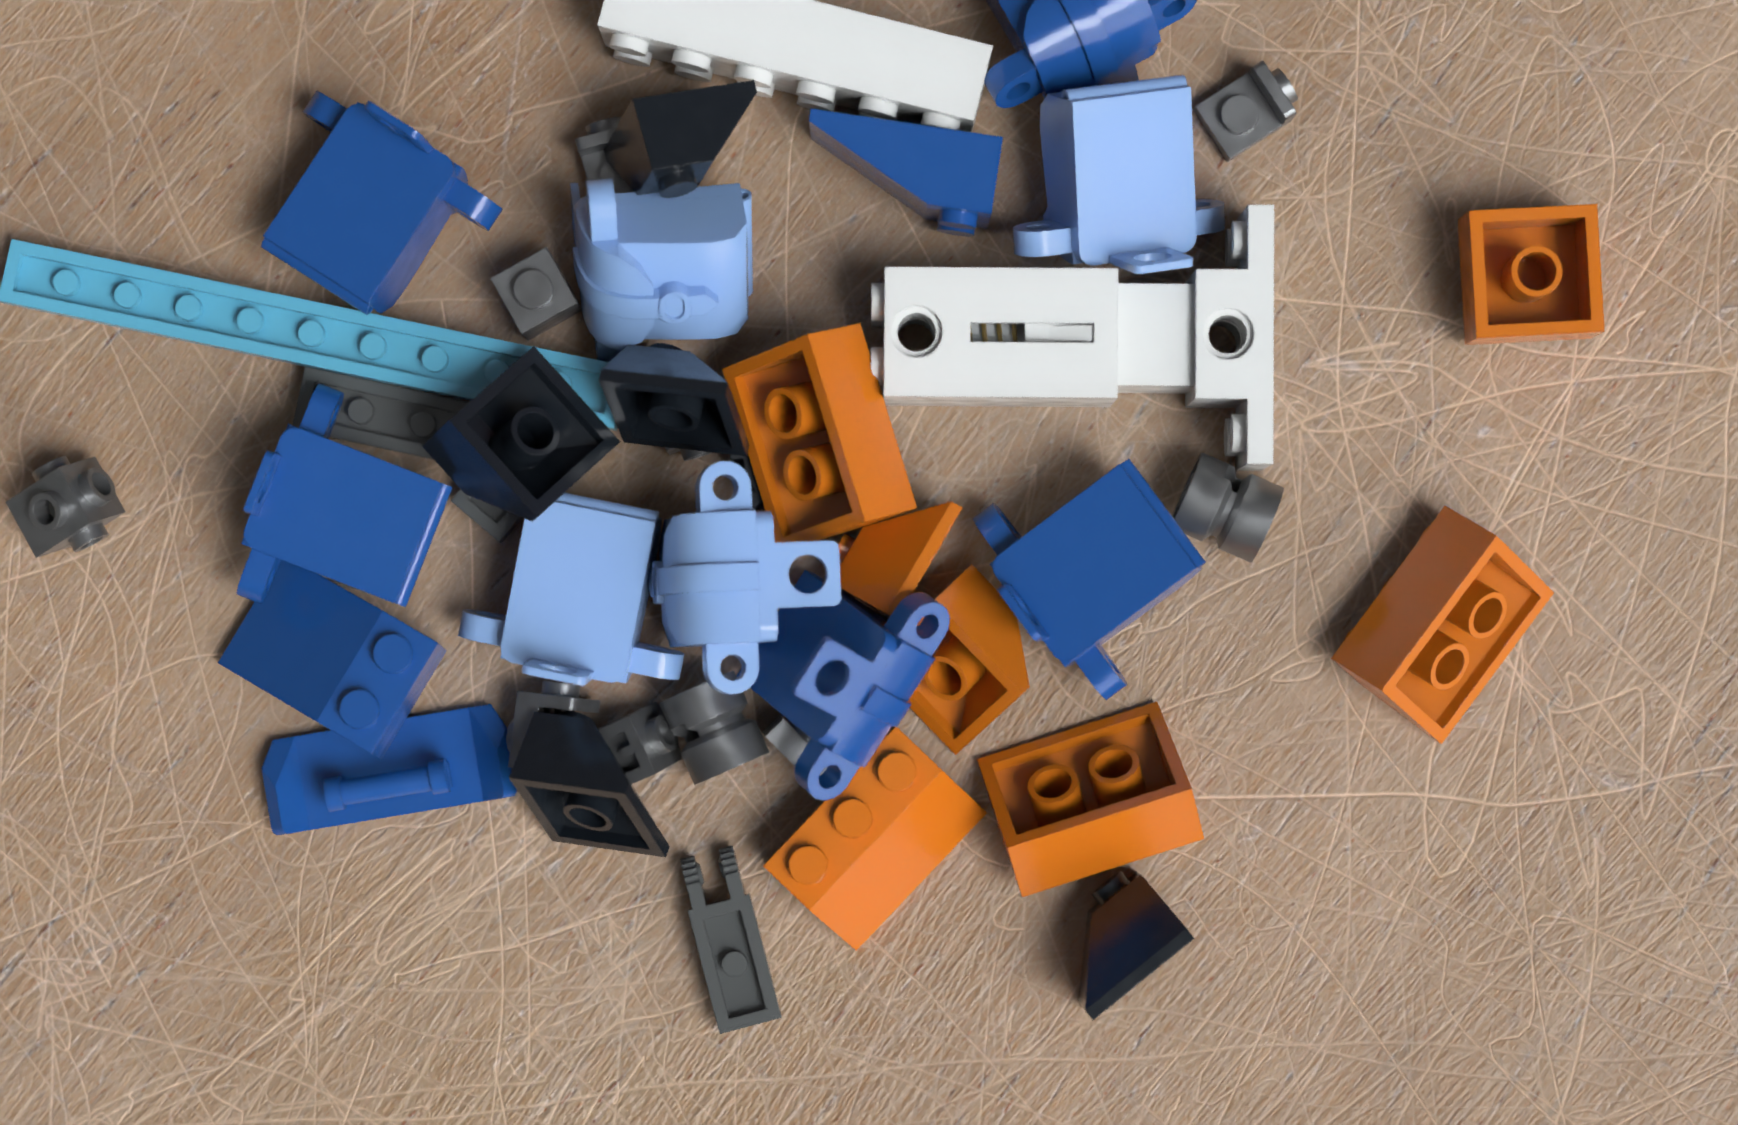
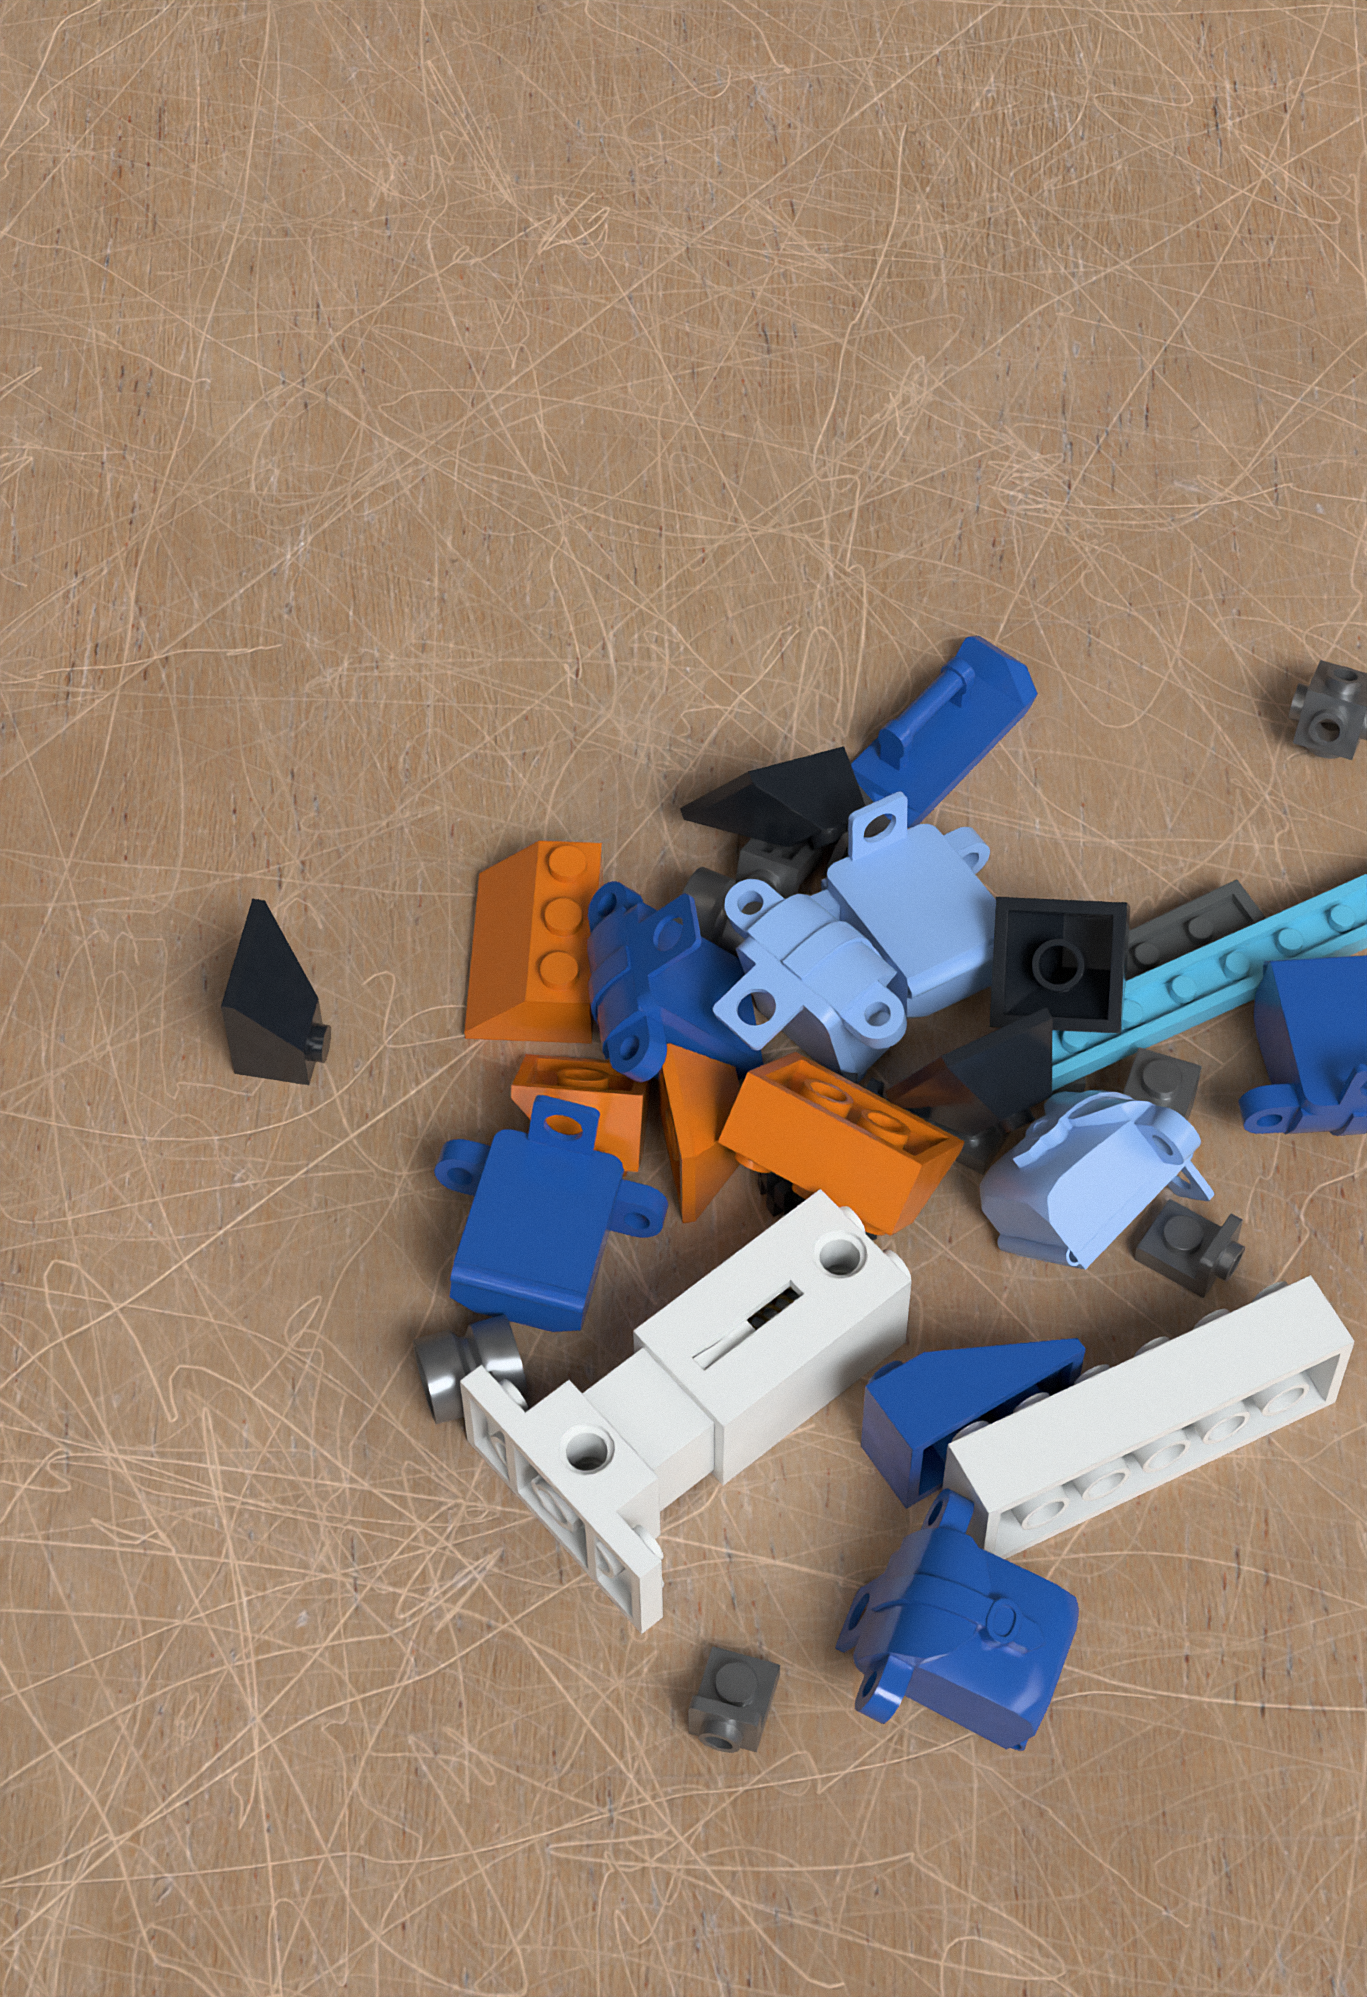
camera: 140 degrees right, 30 degrees down
(333, 657) = (1046, 763): blue slope -> none
(337, 512) = (1148, 832): blue piece -> none
(674, 137) = (1159, 1254): black slope -> none
(731, 948) = (579, 805): dark grey hinge -> none
(1090, 799) = (392, 1090): orange slope -> none
(1120, 178) = (781, 1518): light blue piece -> none
(1443, 623) = (211, 1425): orange slope -> none
(1531, 274) = (368, 1745): orange brick -> none

